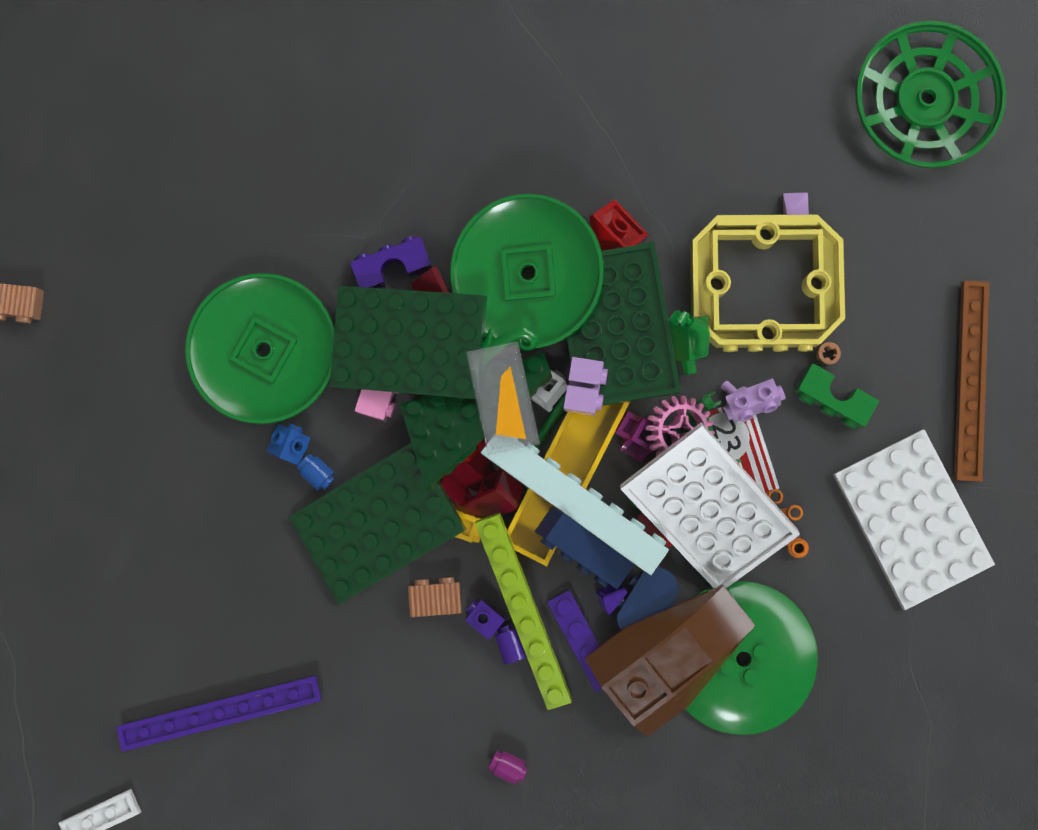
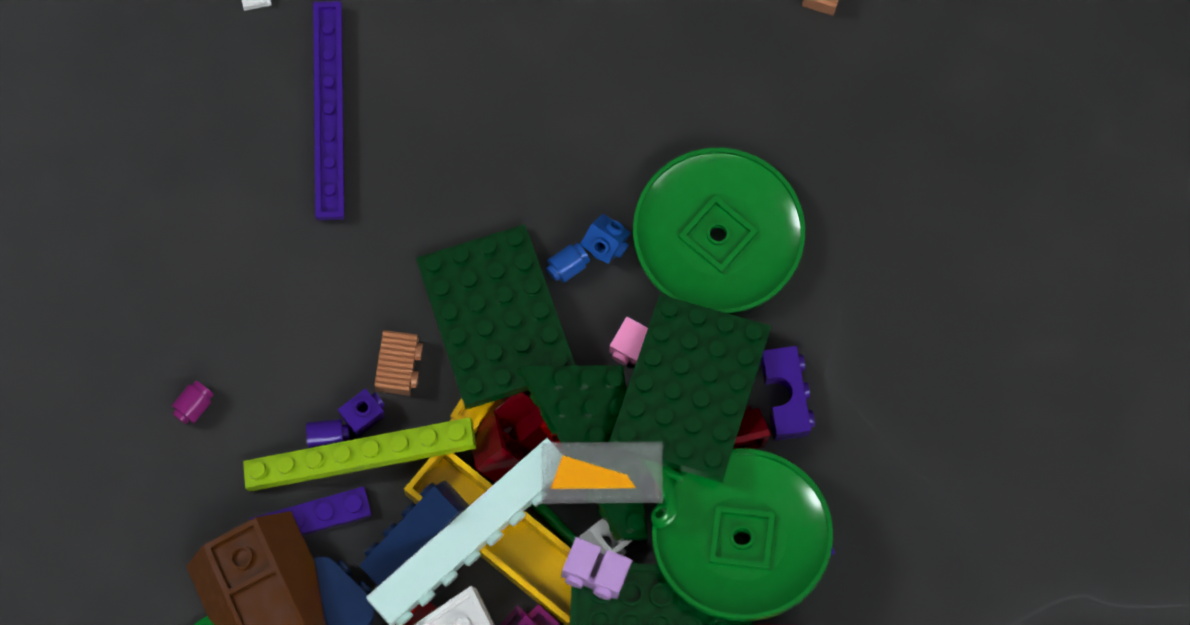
camera: 95 degrees right, 10 degrees down
(610, 597) = (352, 557): dark purple slope -> none

